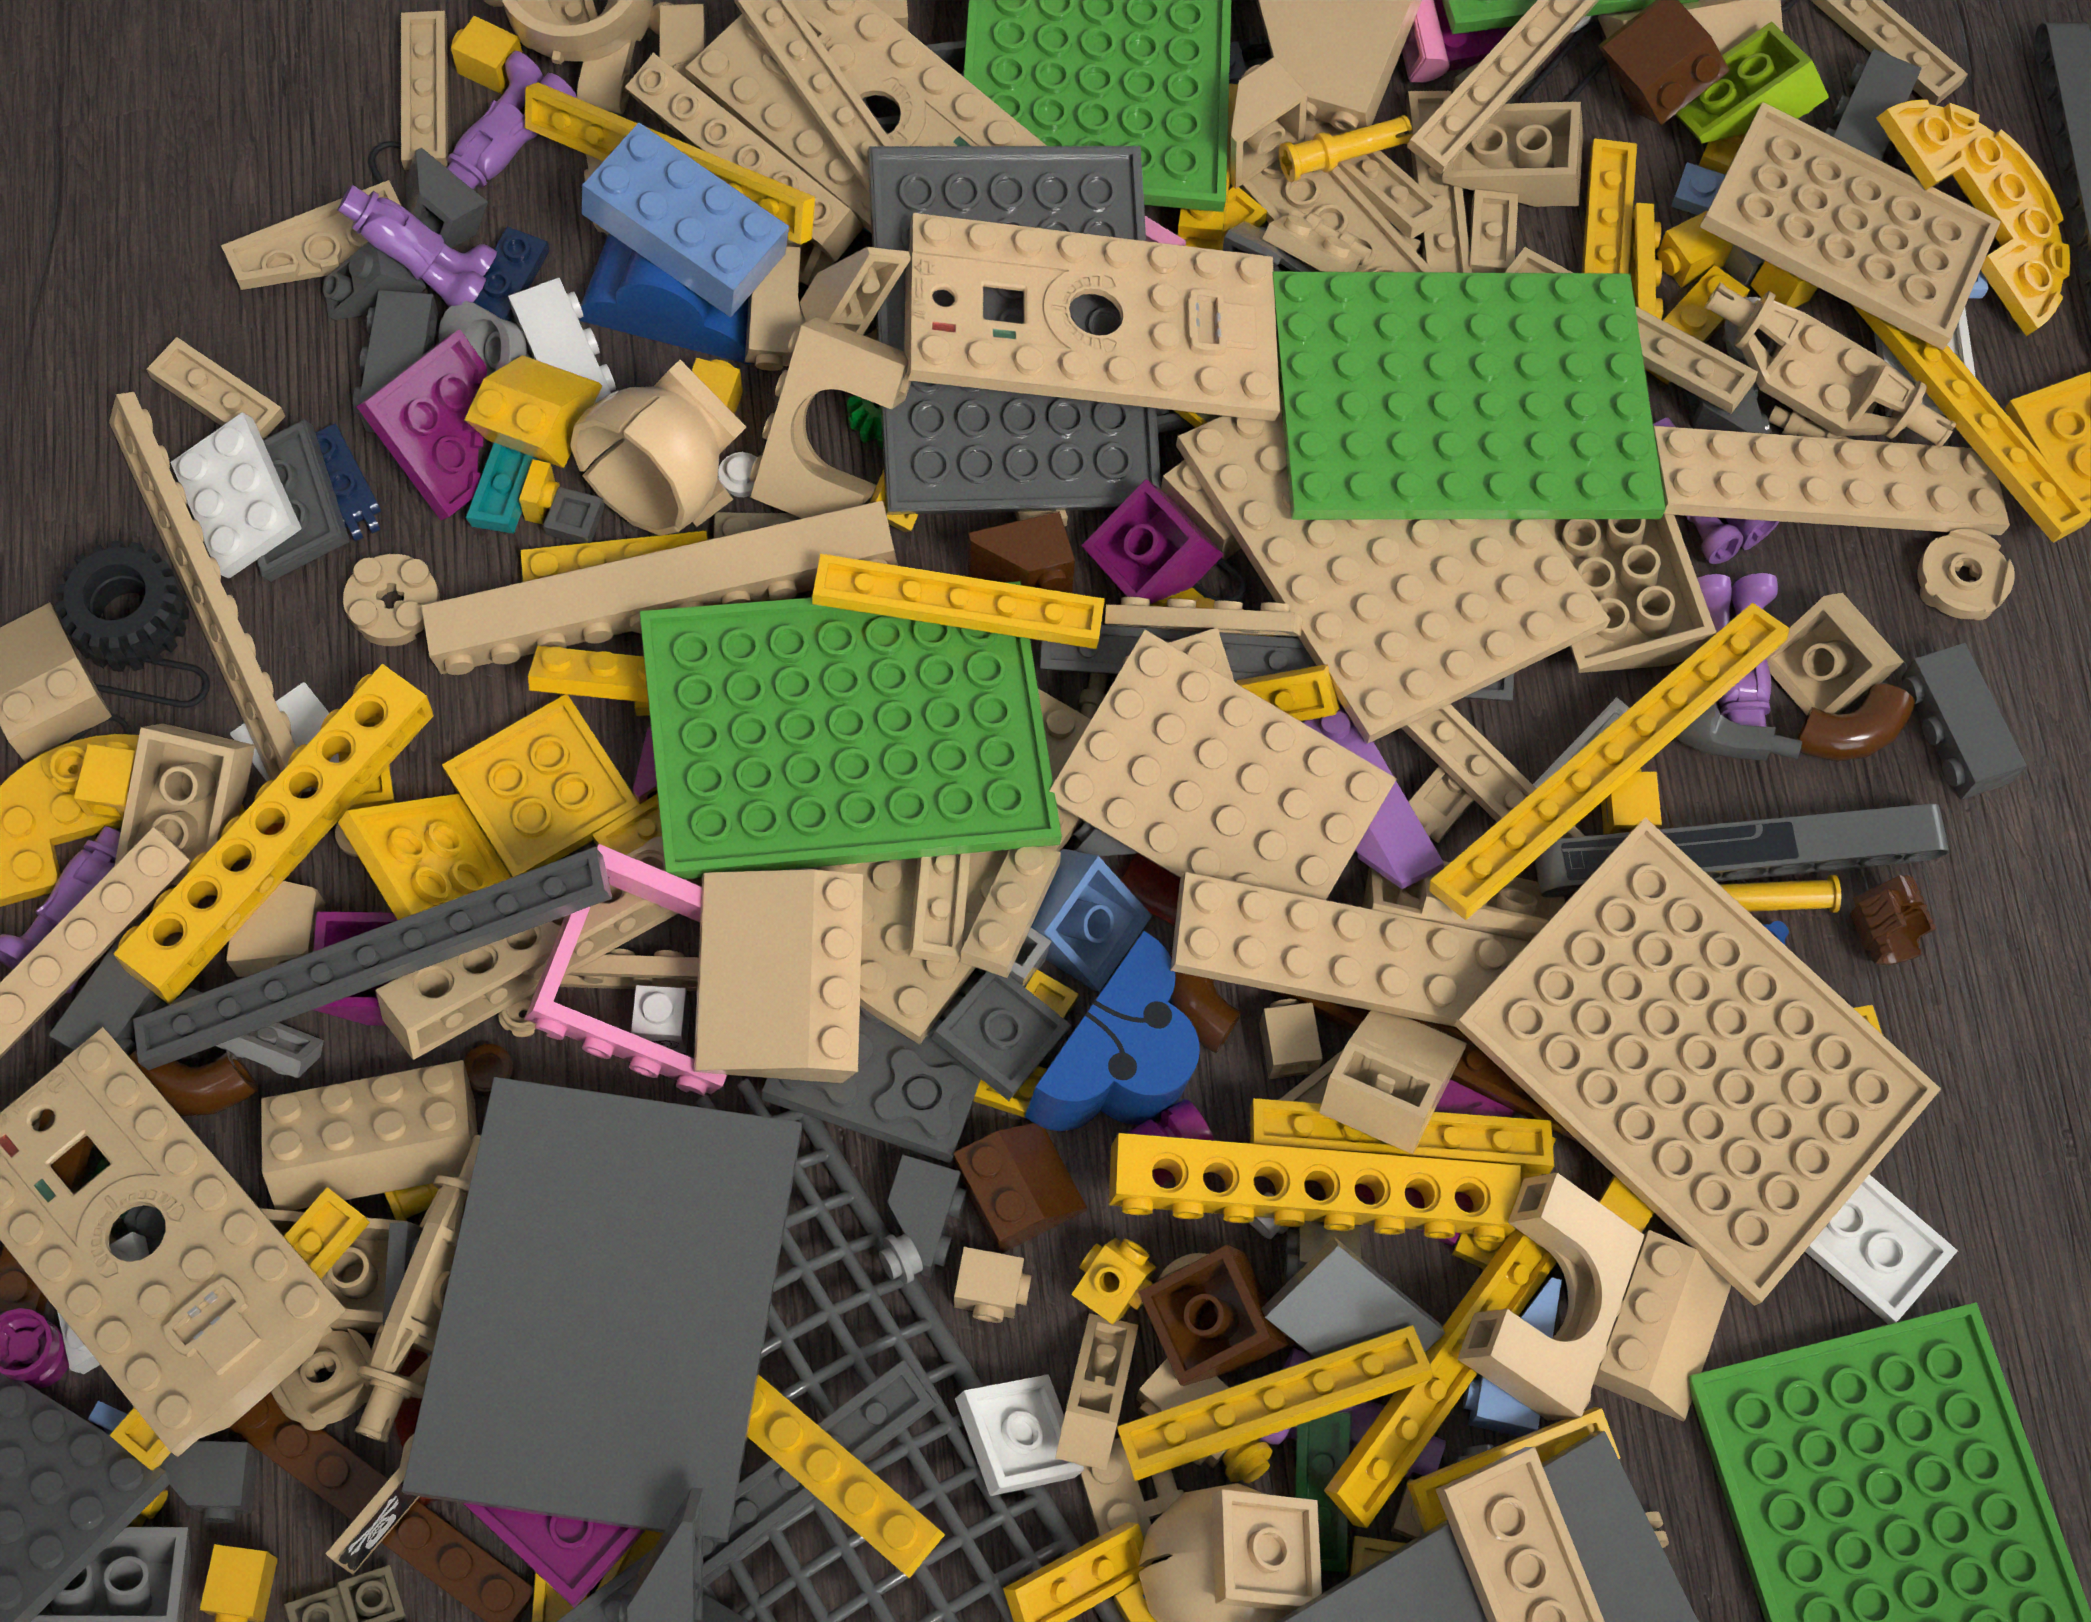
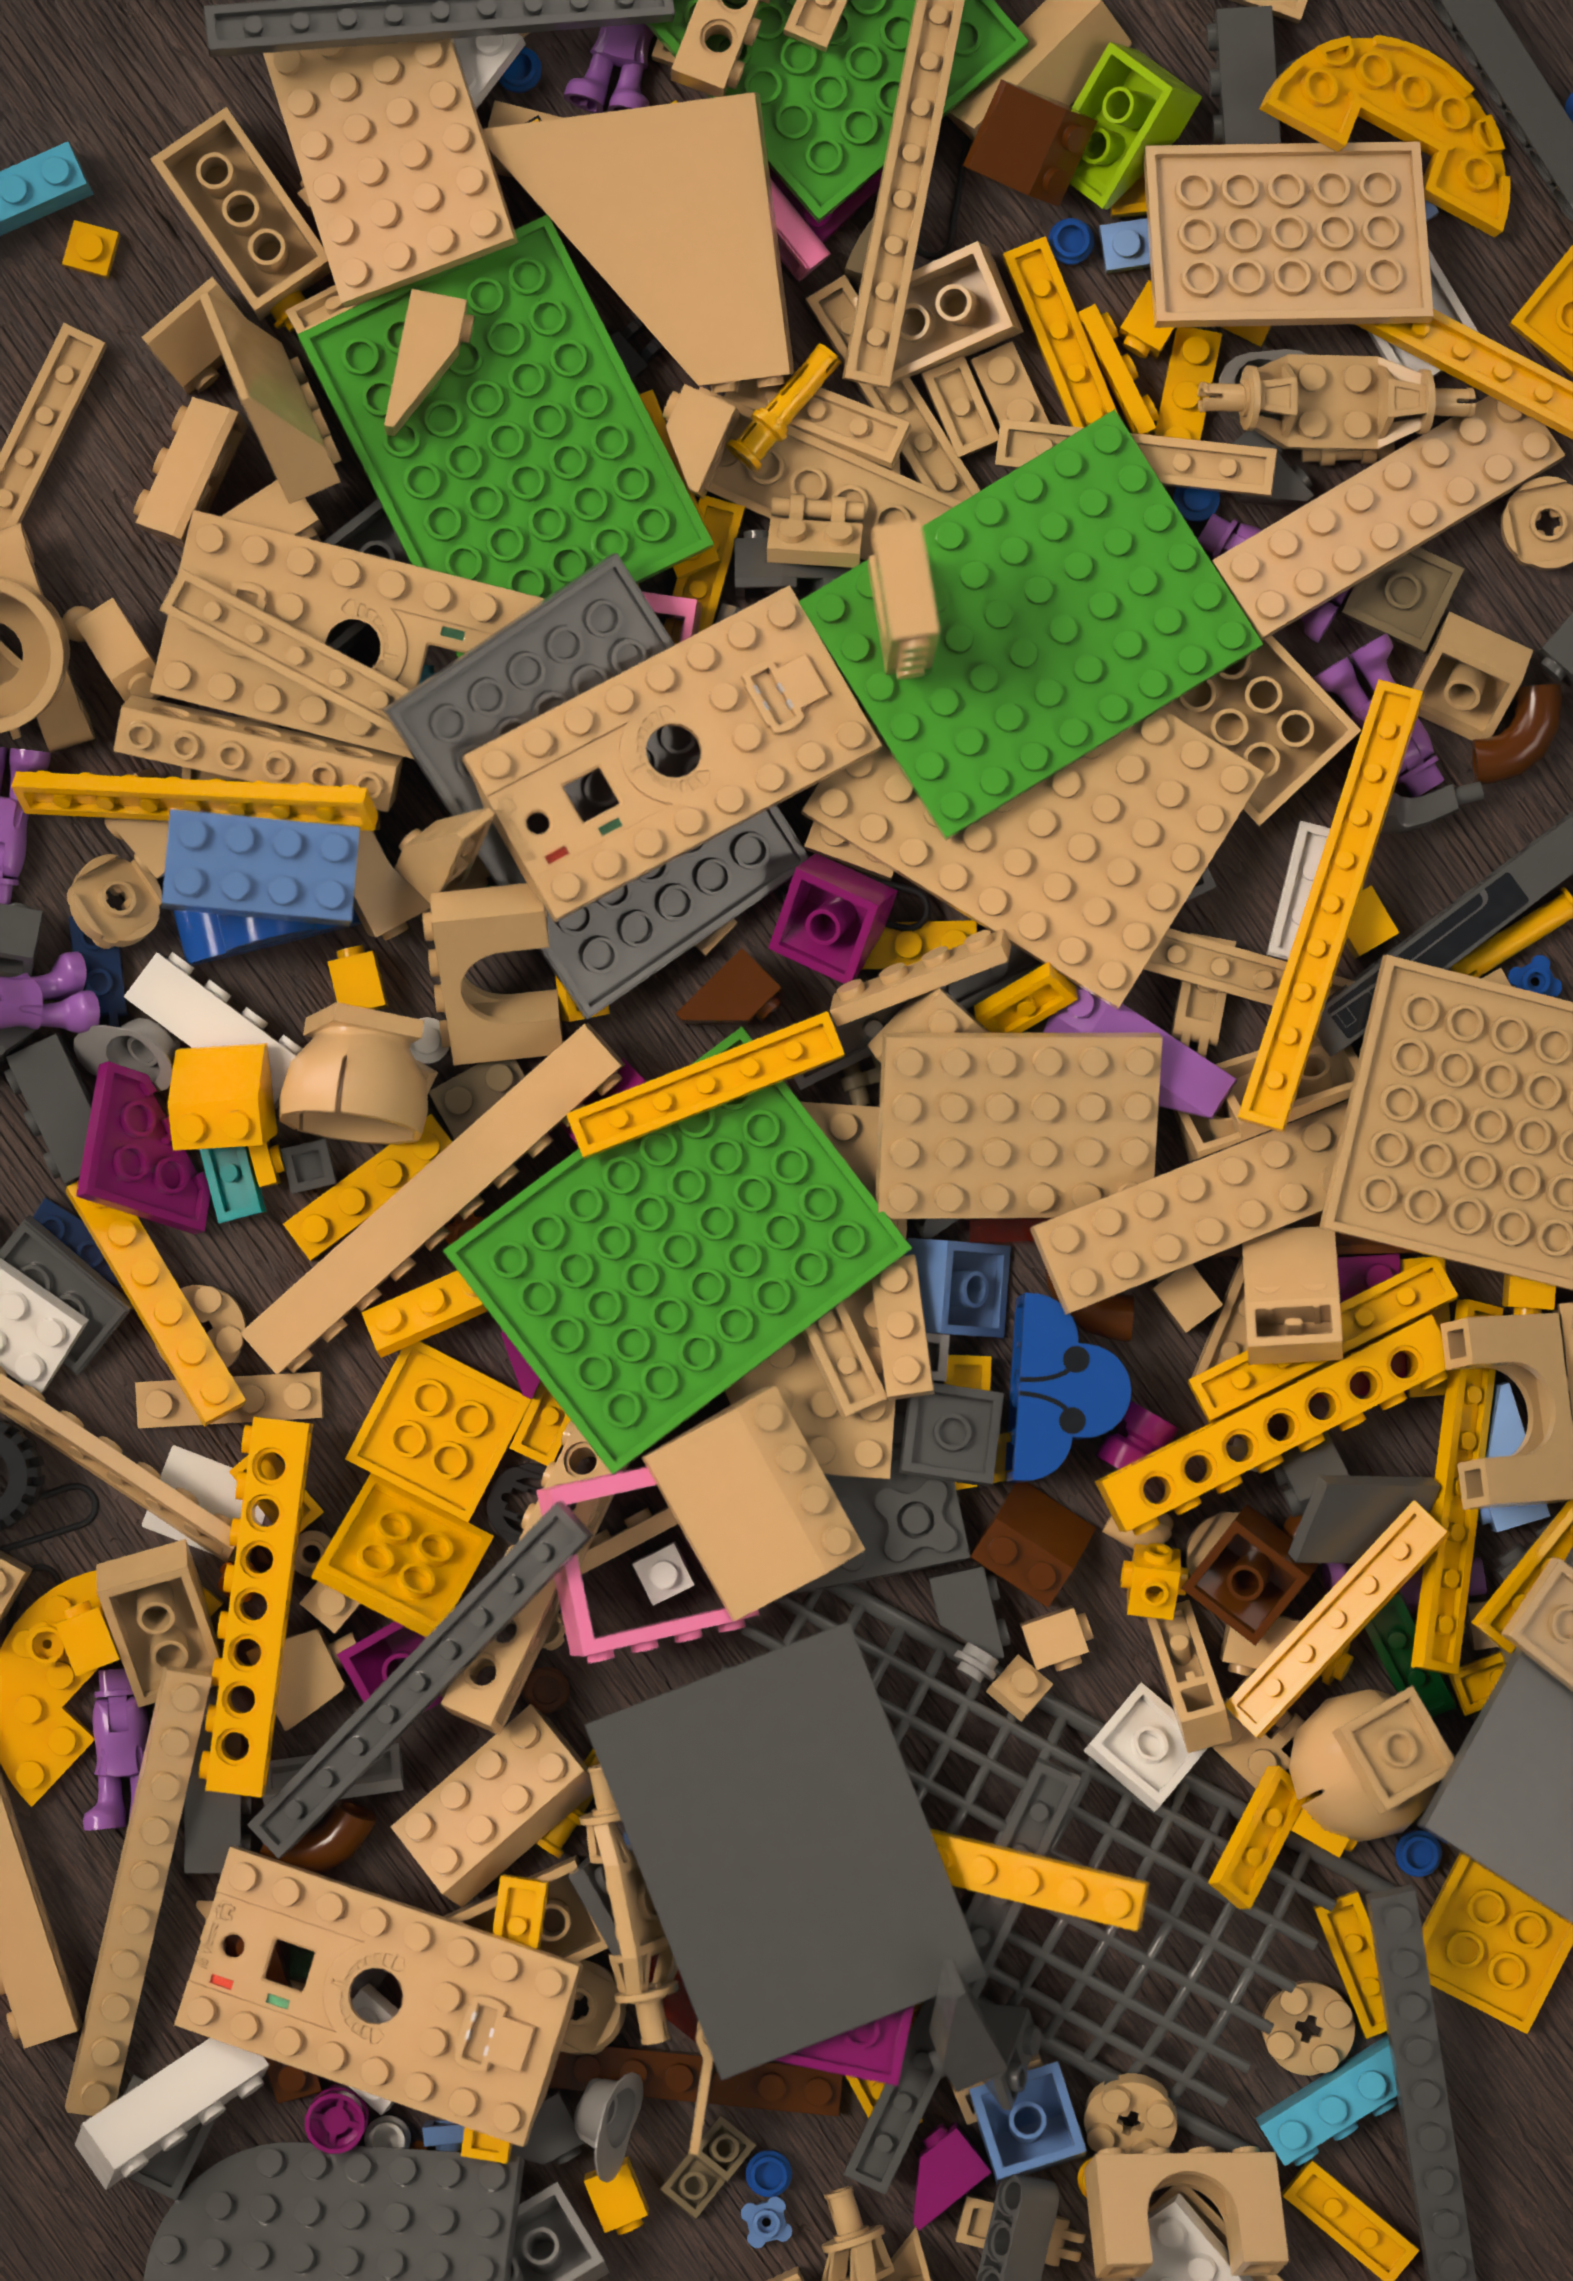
camera: 25 degrees left, 20 degrees up
(69, 1393) = (388, 2132): none -> white plate
(276, 1496) = (606, 2120): none -> light grey piece
(347, 879) = (329, 1606): none -> tan brick
(353, 655) = (266, 1396): none -> tan plate
(369, 550) = (161, 1308): none -> yellow plate
(536, 243) = (106, 924): none -> tan plate
(928, 1309) = (1019, 1688): none -> tan plate
(1113, 1226) = (1156, 1535): none -> tan arm
(1370, 266) = (903, 599): none -> tan arch
(1542, 231) = (1007, 385): none -> tan plate
(1656, 163) = (1071, 241): none -> blue plate
(1664, 400) = (1196, 504): none -> blue plate
(1807, 562) = (1405, 598): none -> dark tan plate

